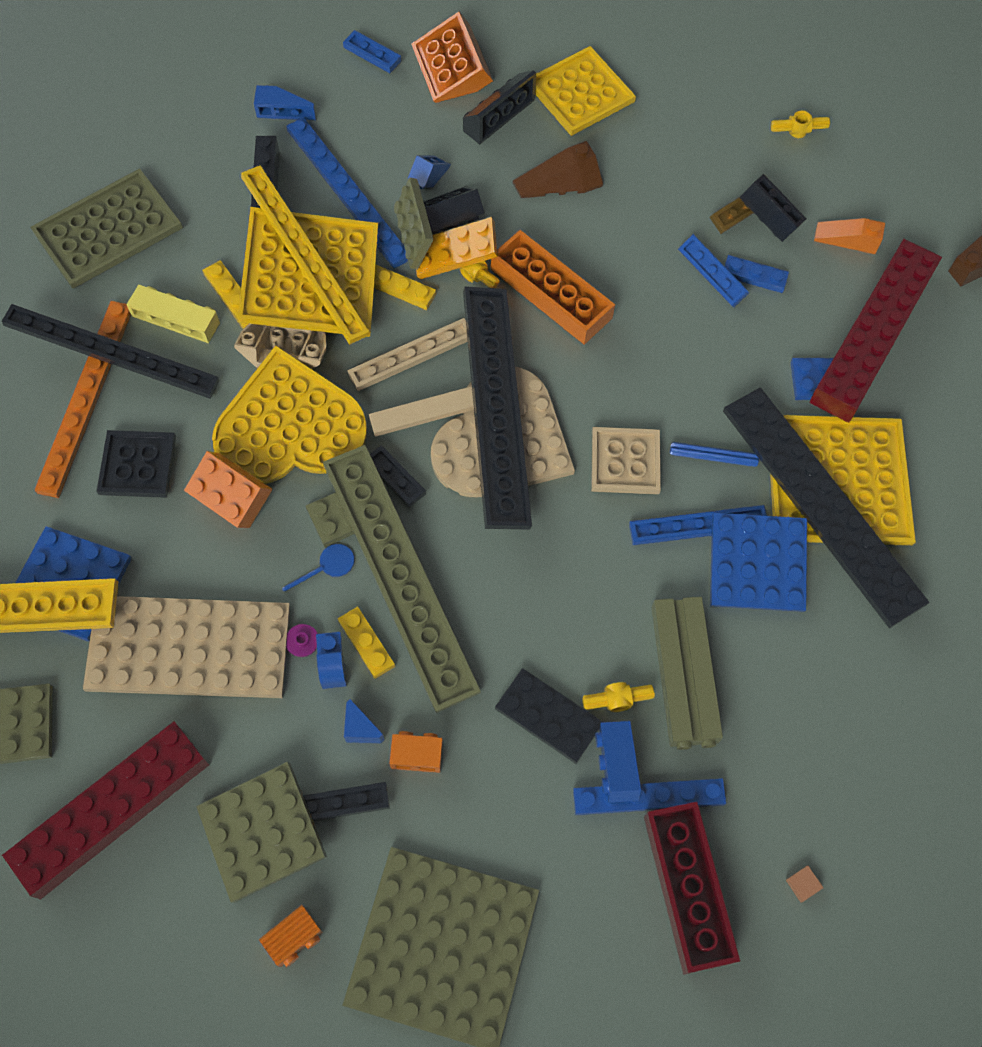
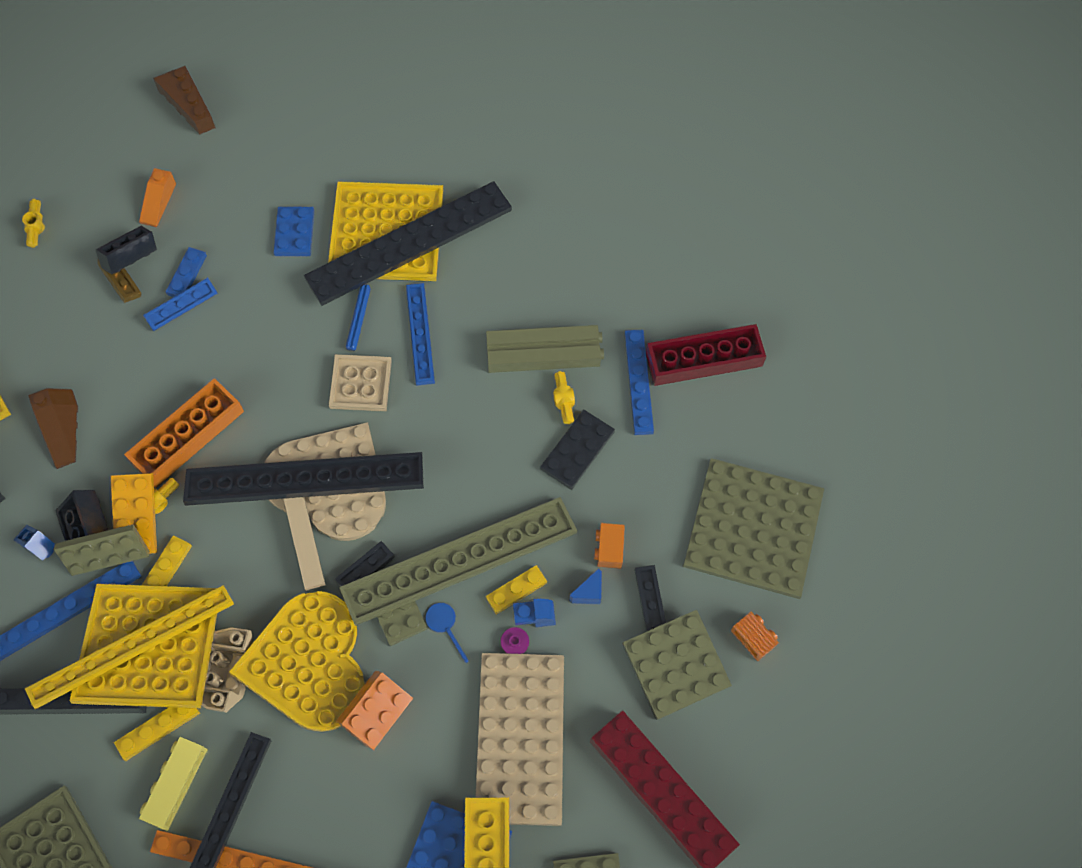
camera: 90 degrees left, 0 degrees up
(136, 464) = (338, 804): black plate -> none
(408, 355) = (241, 557): tan plate -> none
(618, 762) = (616, 397): blue brick -> none
(758, 562) = (455, 292): blue plate -> none
(804, 884) = (697, 285): nougat tile -> none
(875, 331) = (256, 187): dark red brick -> none

